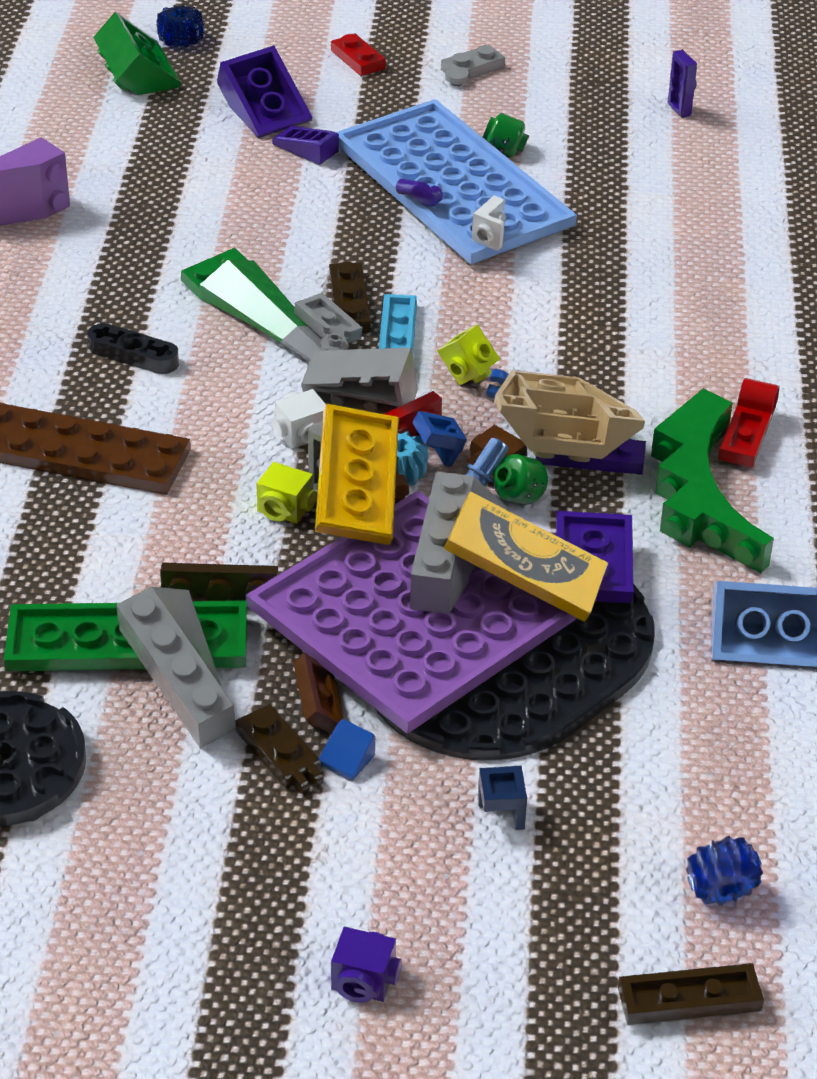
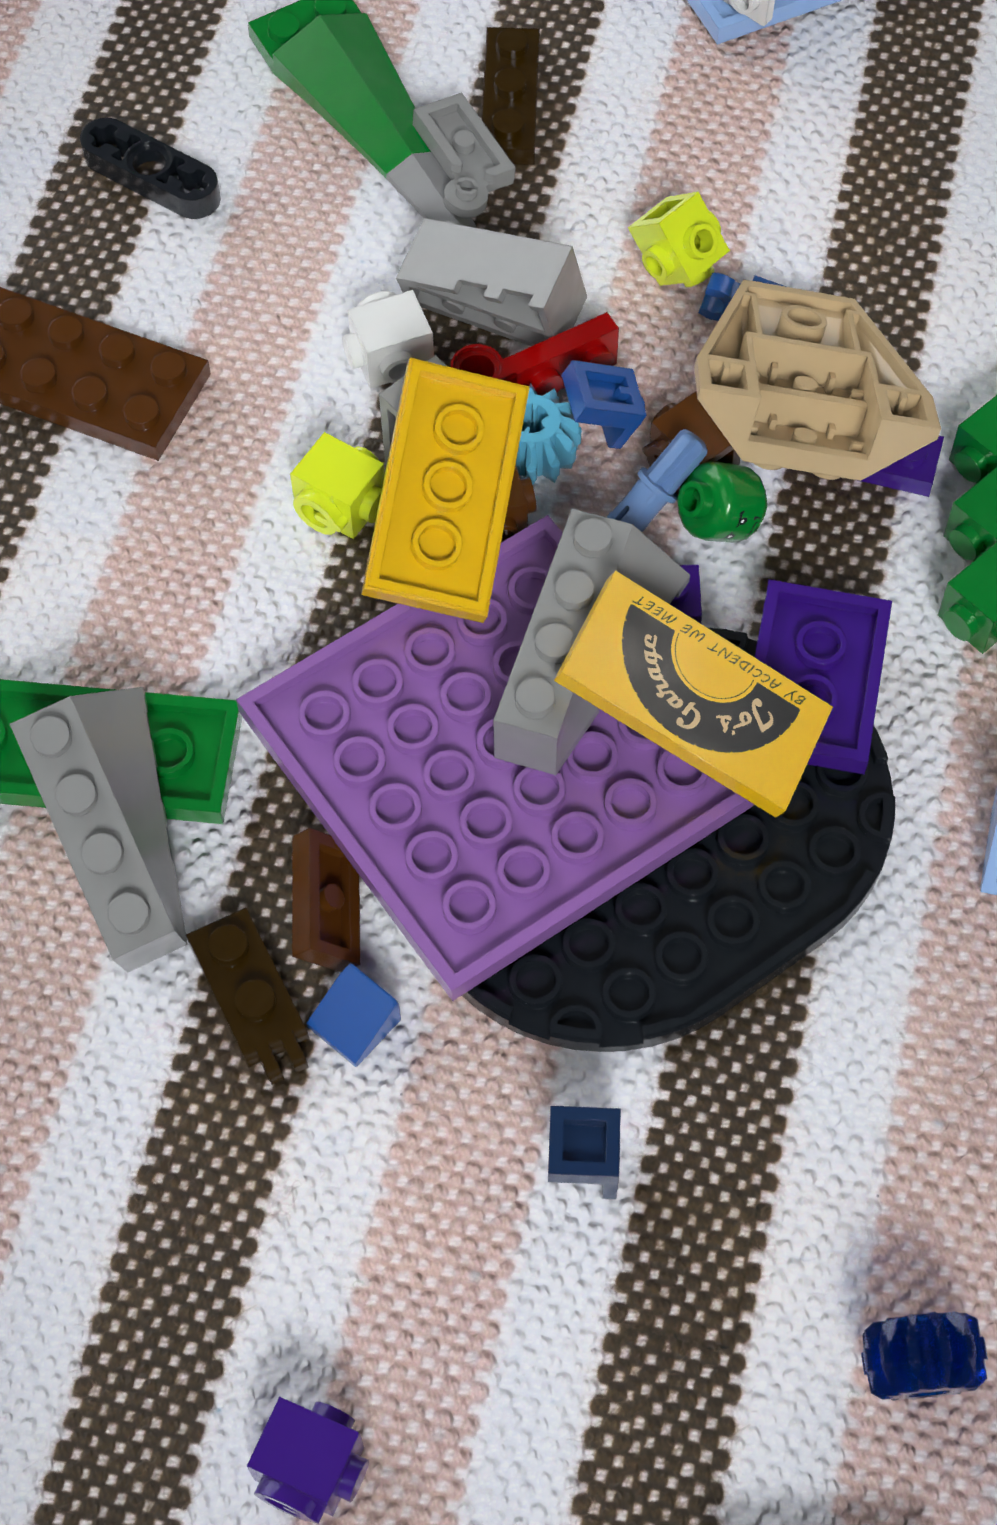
camera: 10 degrees right, 20 degrees up
(216, 581) = (194, 658): dark brown plate -> none
(398, 321) = (576, 174): medium azure tile -> none

